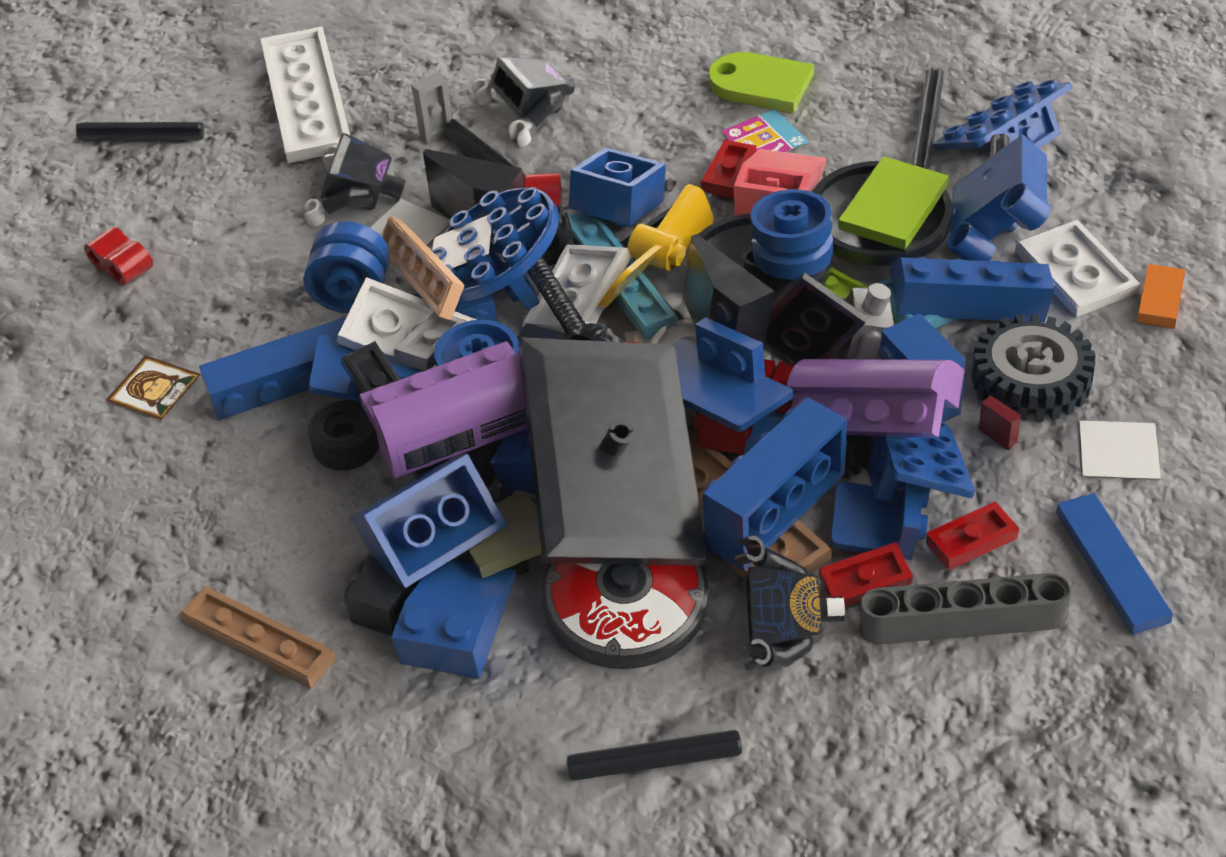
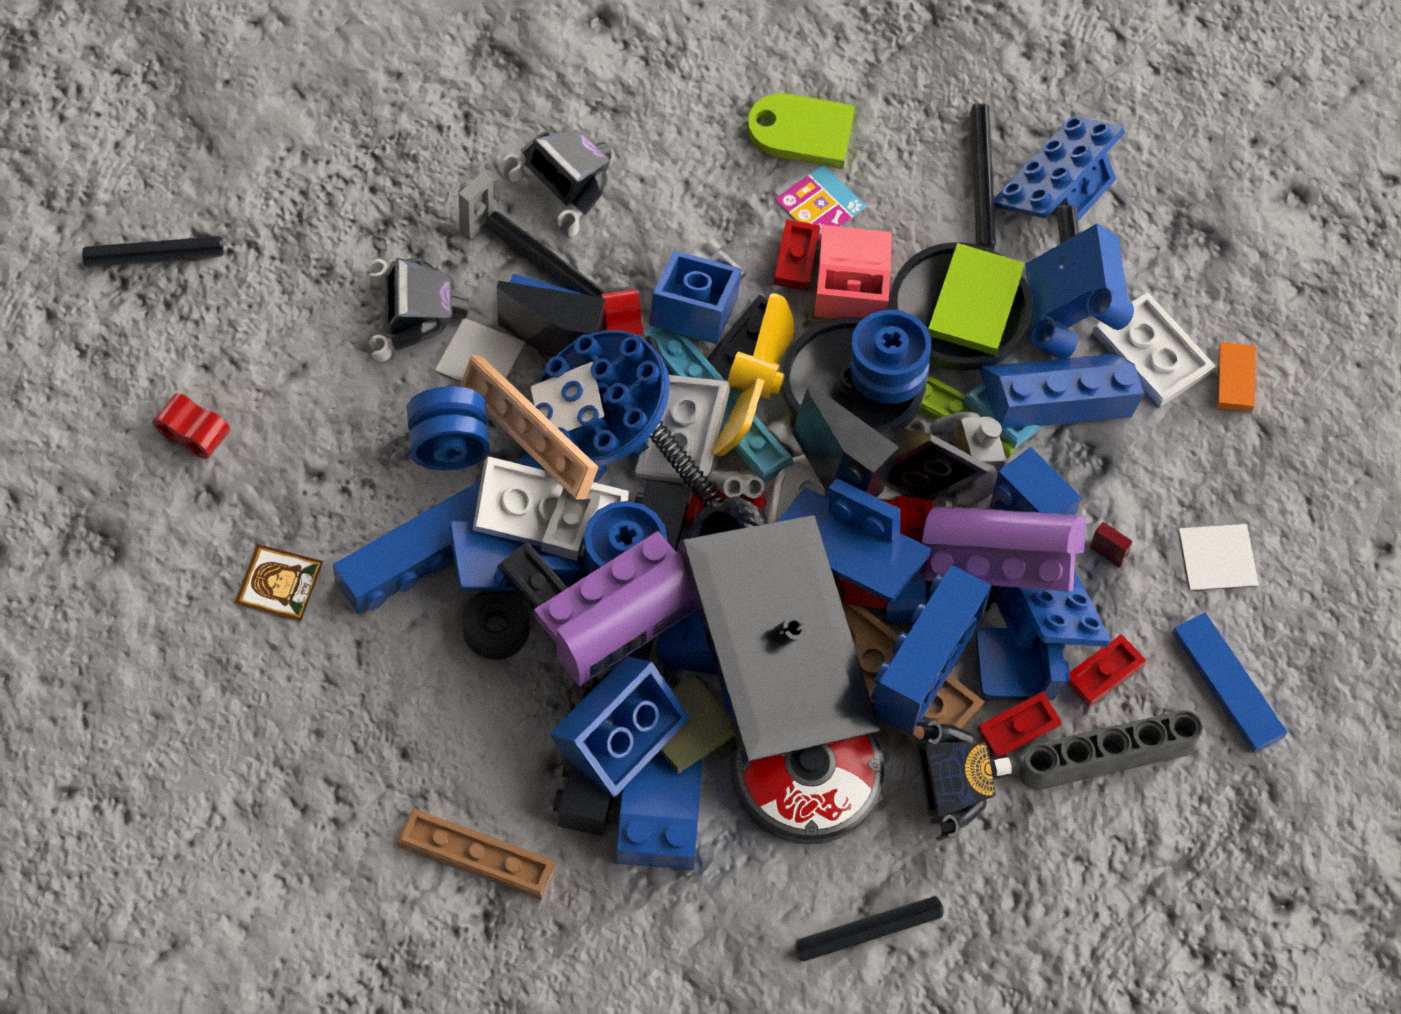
camera: 20 degrees left, 15 degrees up
(304, 93) = (322, 186): white plate -> none
(625, 330) = (735, 483): none -> light grey piece
(1034, 366) = (1151, 495): black wheel -> none

